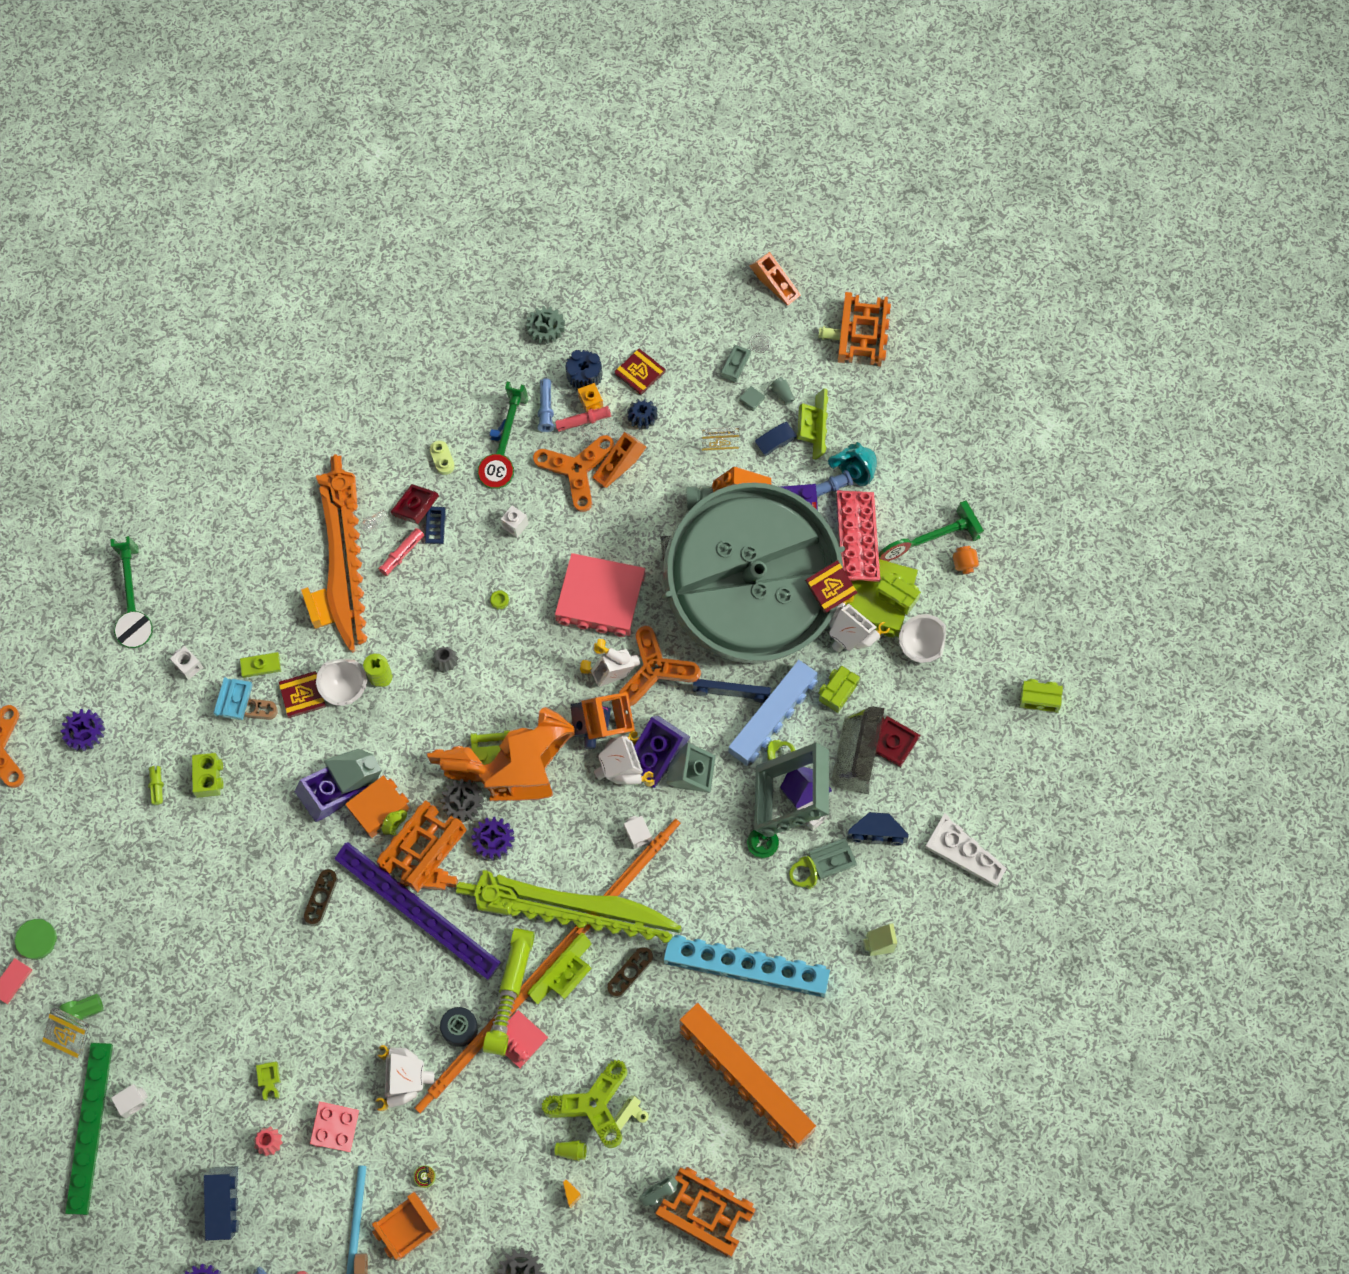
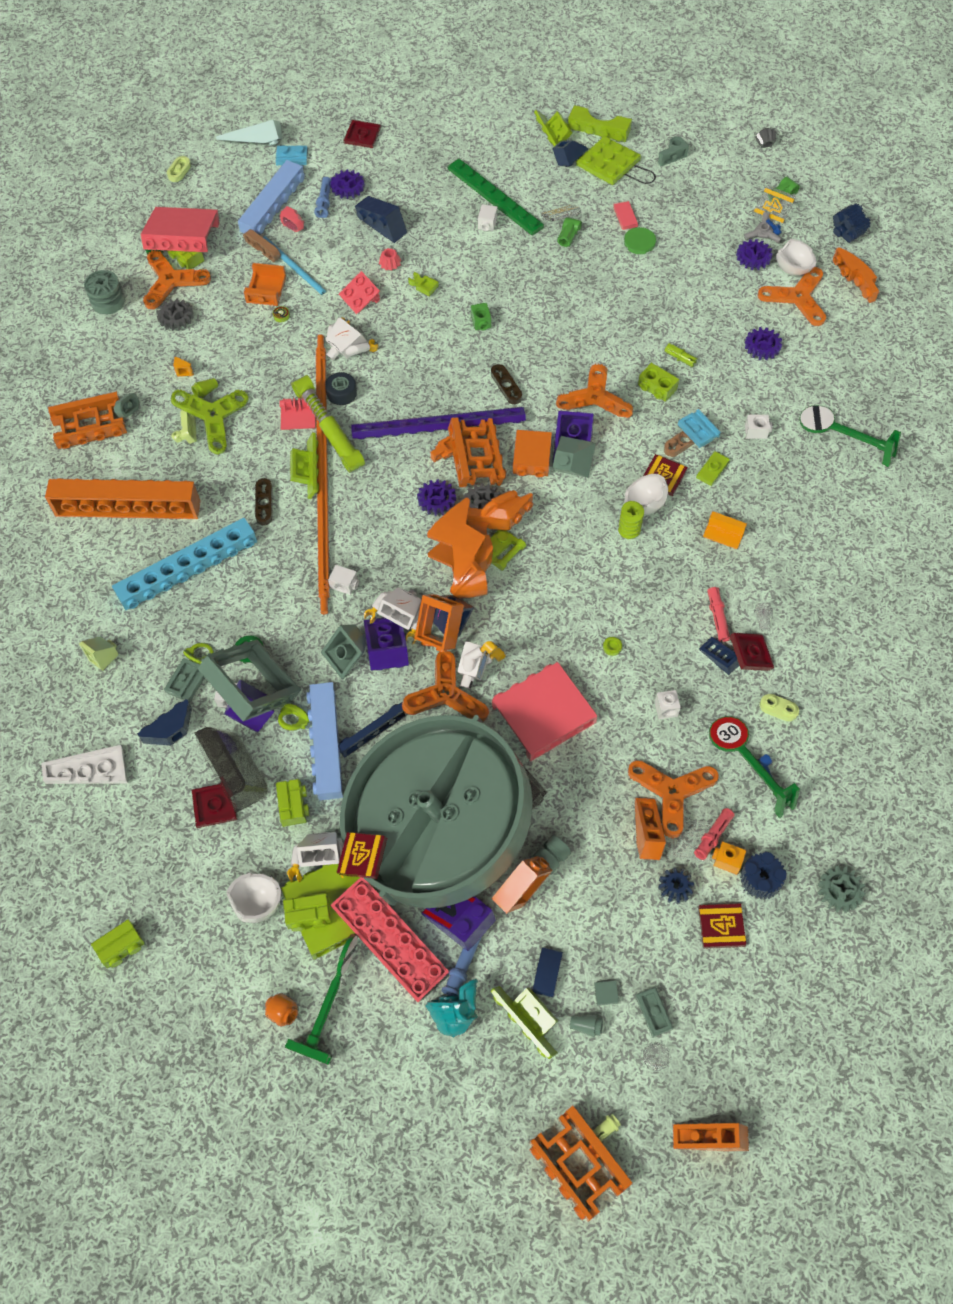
camera: 135 degrees right, 5 degrees down
(264, 995) = (481, 316): none -> bright green brick
(287, 811) = (595, 395): none -> orange piece
(344, 494) = (801, 606): orange piece -> none
(387, 825) = (508, 450): lime piece -> none
(445, 659) = (600, 573): dark grey piece -> none
(496, 896) = (383, 477): lime piece -> none
(545, 412) = (749, 813): medium blue pin -> none
(720, 439) = (587, 917): clear tile -> none

